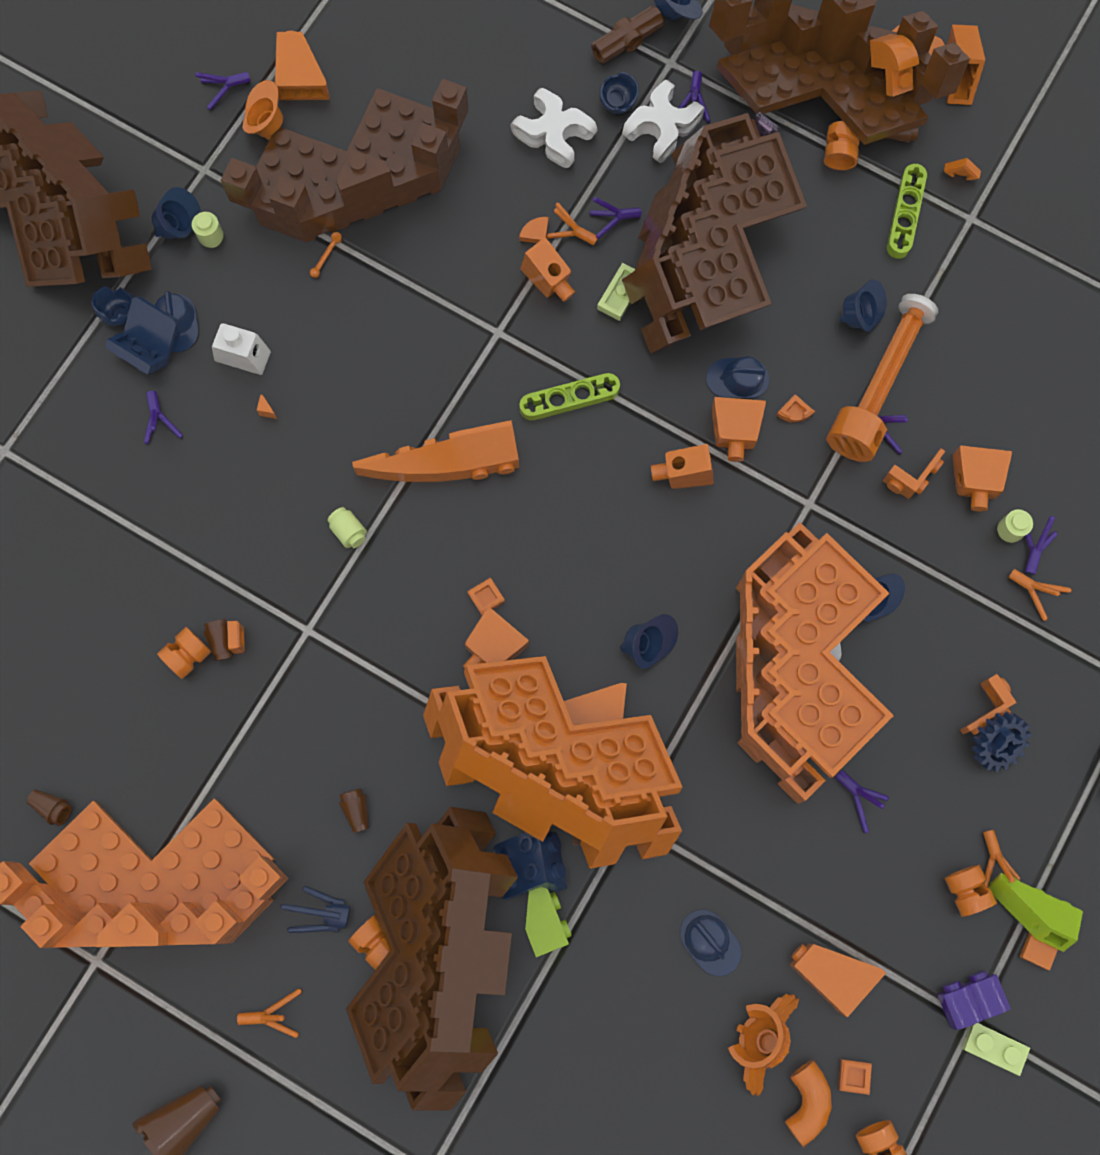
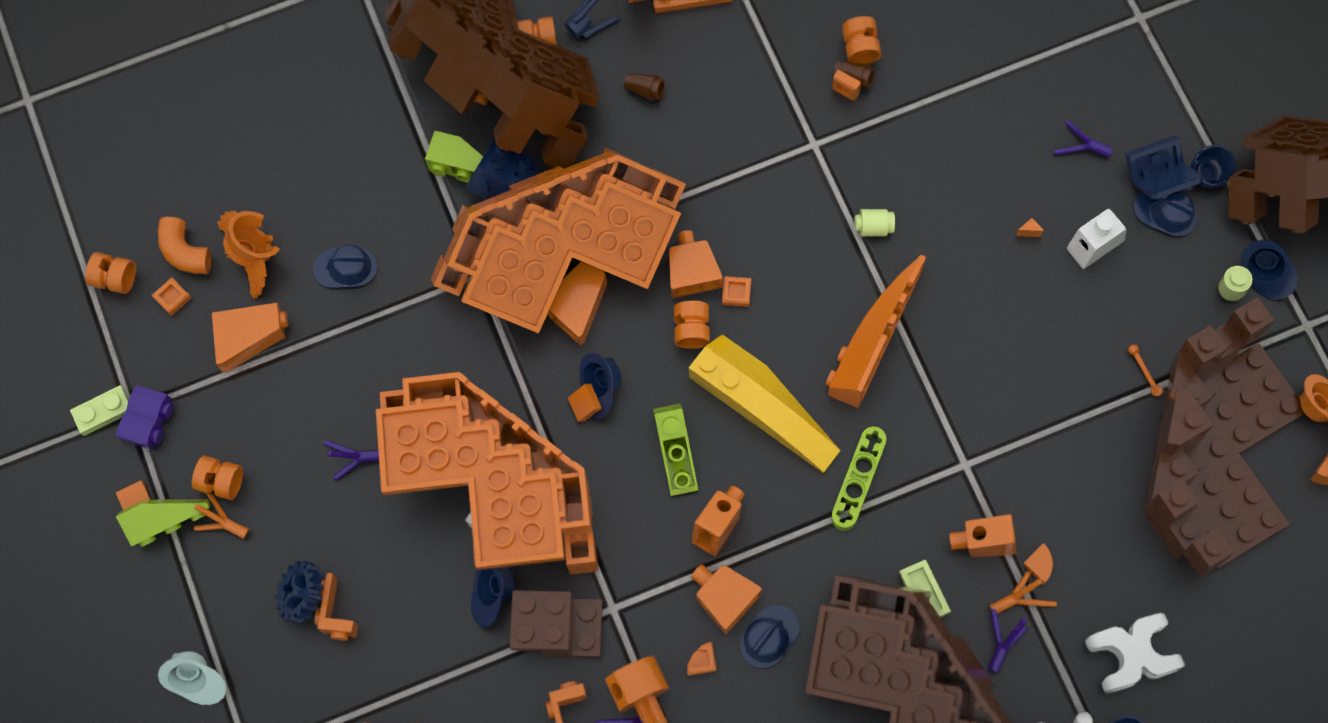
camera: 135 degrees right, 5 degrees down
(544, 605) = (691, 322): none -> orange wheel
(560, 515) = (762, 399): none -> yellow wedge
(652, 546) = (675, 449): none -> lime slope
(672, 642) = (584, 402): none -> orange tile
(862, 526) = (556, 624): none -> reddish brown bracket

